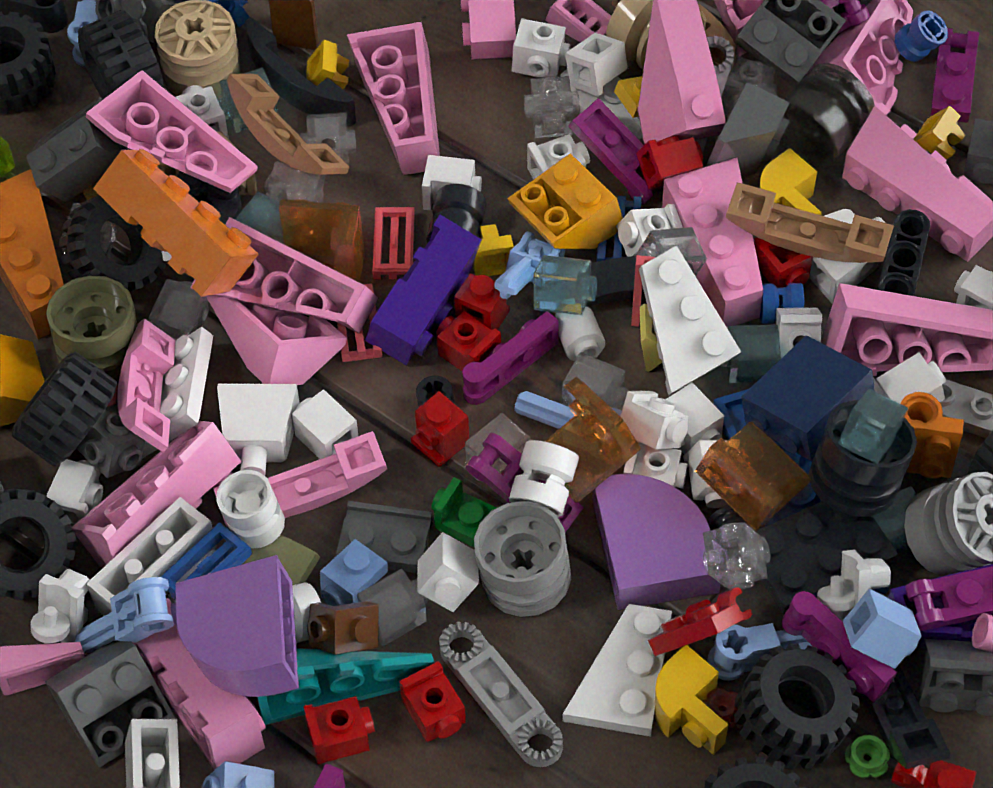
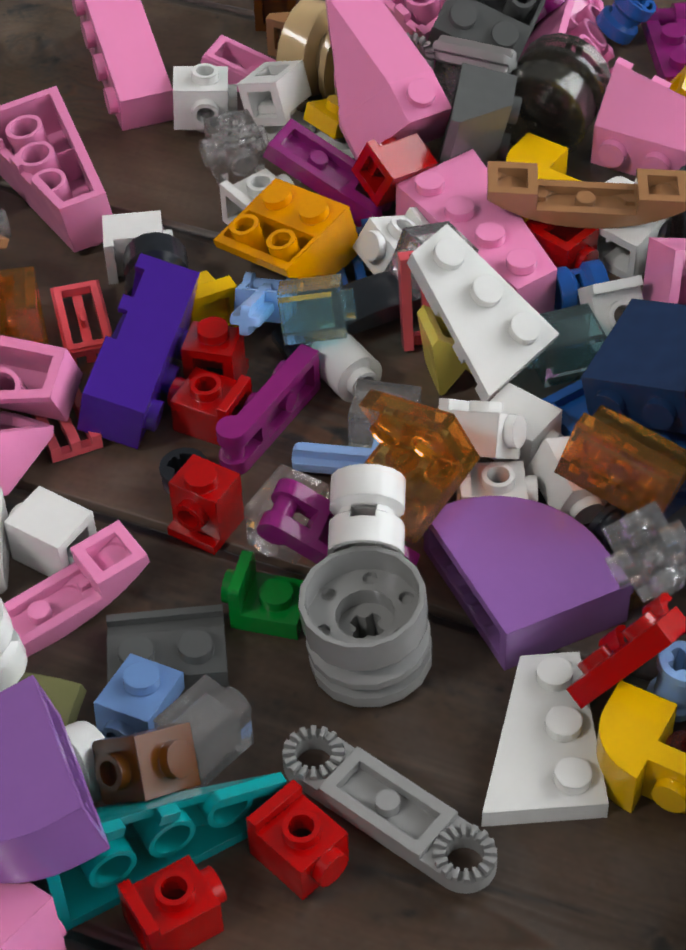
camera: 15 degrees left, 10 degrees down
(447, 572) = (270, 666): white brick -> none
(764, 70) = (458, 51): none -> light grey axle

